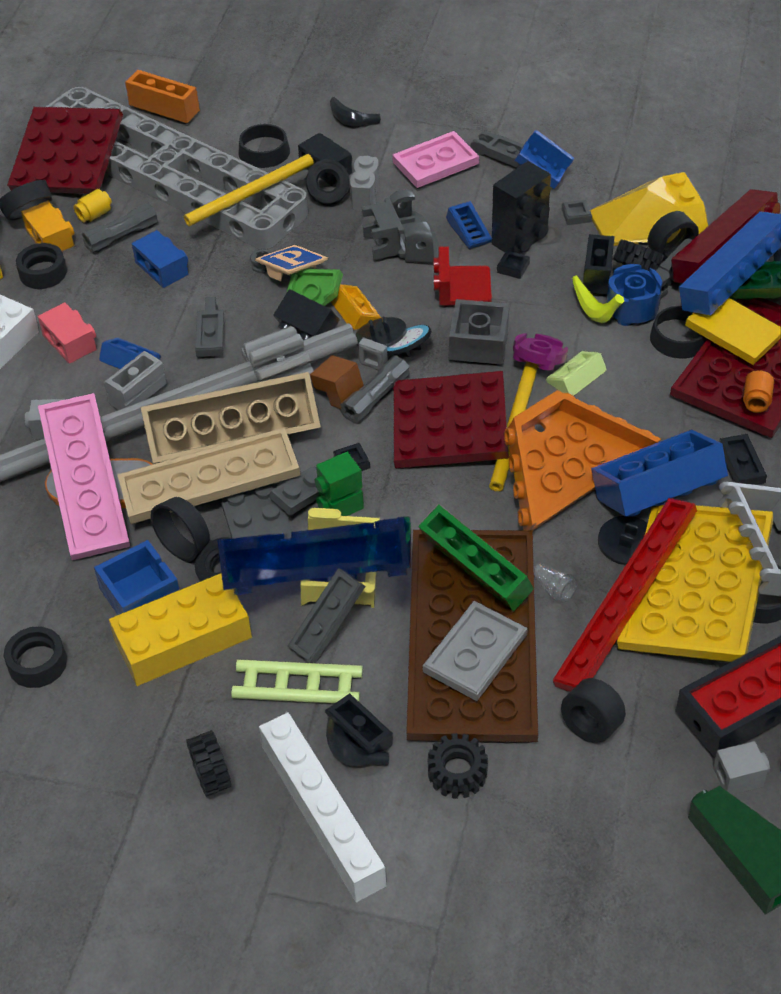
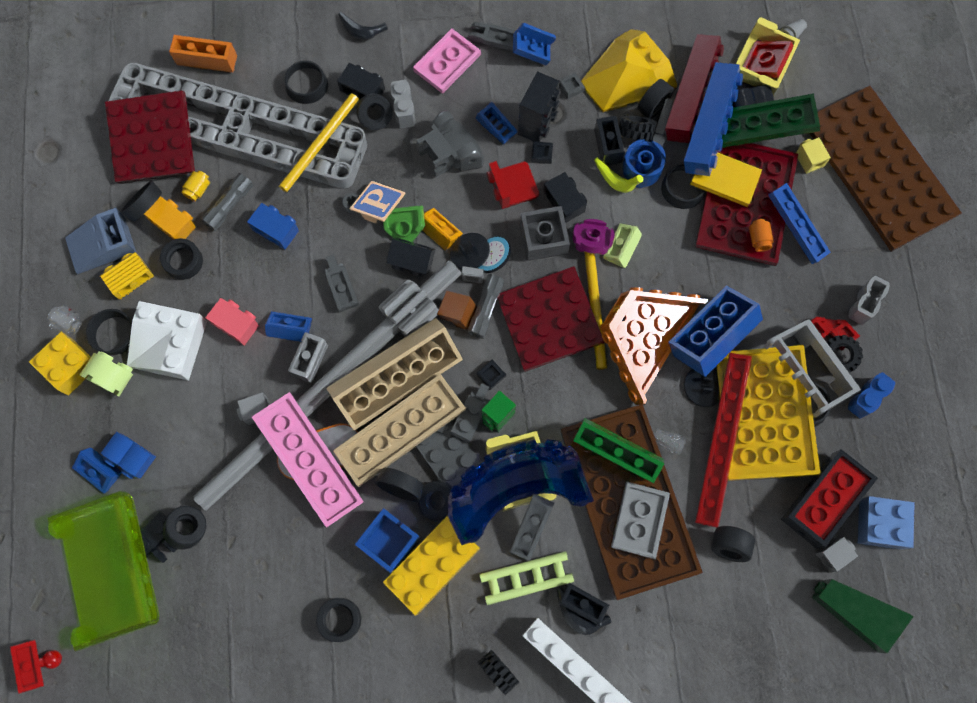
camera: 20 degrees left, 25 degrees up
(457, 782) = (671, 612): black tyre -> none
(525, 310) = (563, 192): none -> black brick
(743, 460) = (764, 294): black plate -> none

